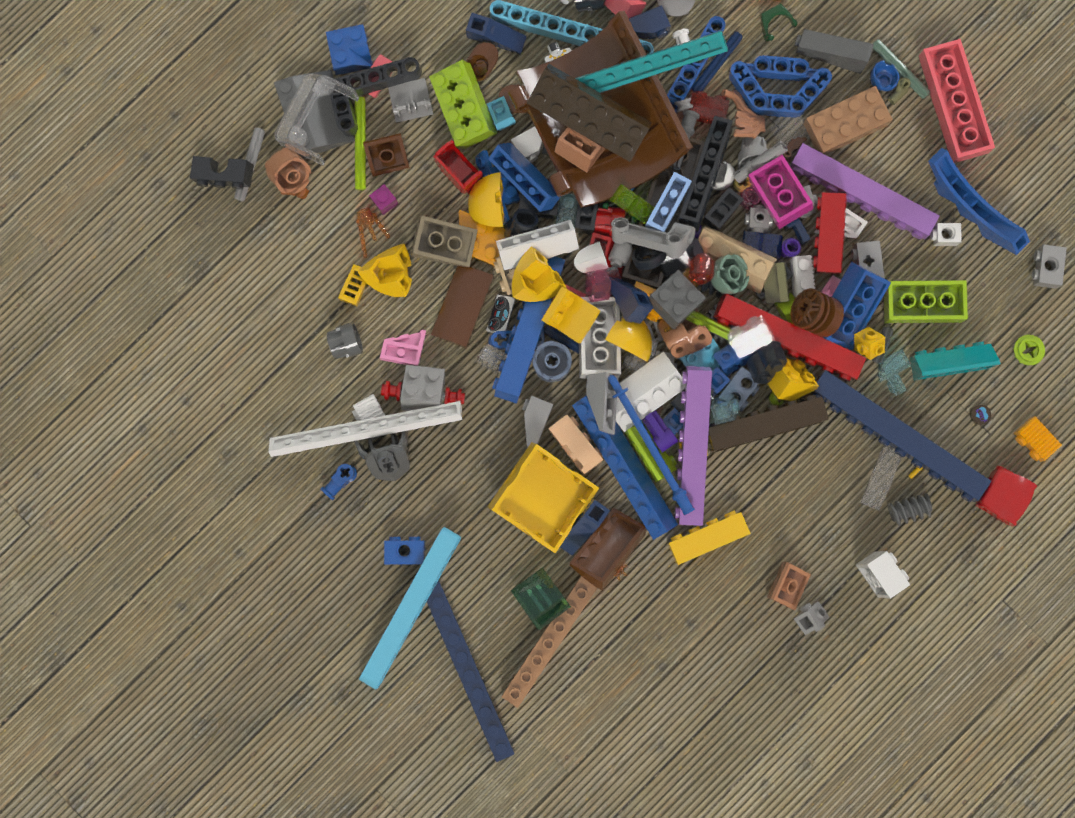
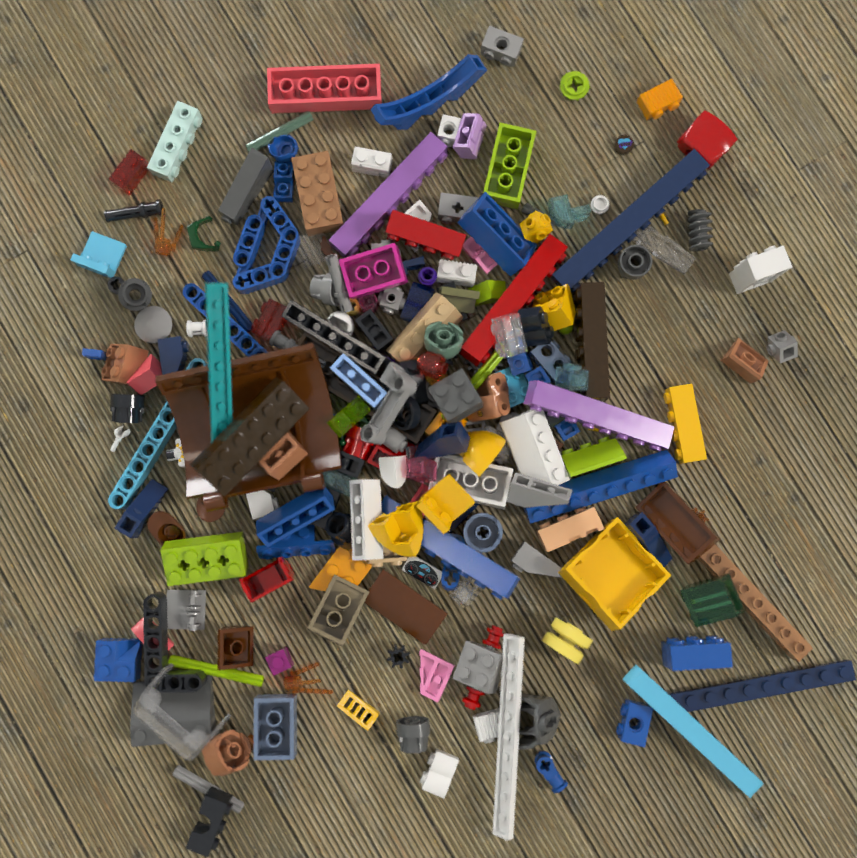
camera: 80 degrees left, 0 degrees up
(314, 375) = (439, 773): none -> white brick
(322, 210) = (275, 727): none -> sand blue brick
(389, 272) = (353, 672): yellow brick -> none
(411, 305) = (400, 661): none -> black gear
(468, 466) = (567, 640): none -> light yellow wheel
(485, 594) = (696, 653): none -> blue brick
(486, 201) = (309, 559): yellow brick -> none
(501, 113) = (223, 522): medium azure slope -> none
(662, 434) = (583, 443): dark purple piece -> none
(678, 493) = (643, 441): blue bar -> none
(683, 104) = (262, 342): light grey bush -> none
(746, 119) = (293, 286): nougat animal -> none
(817, 312) = (499, 267): reddish brown wheel -> none
(850, 86) = (283, 181): none -> blue slope
(868, 444) = (639, 254): none -> dark grey piece
(893, 166) = (371, 162): none -> white brick
(901, 90) = (300, 137): olive arm -> none
(911, 404) = (599, 204): none -> white plate
(946, 255) = (469, 136): none -> lavender brick
(954, 361) = (571, 154): teal slope -> none

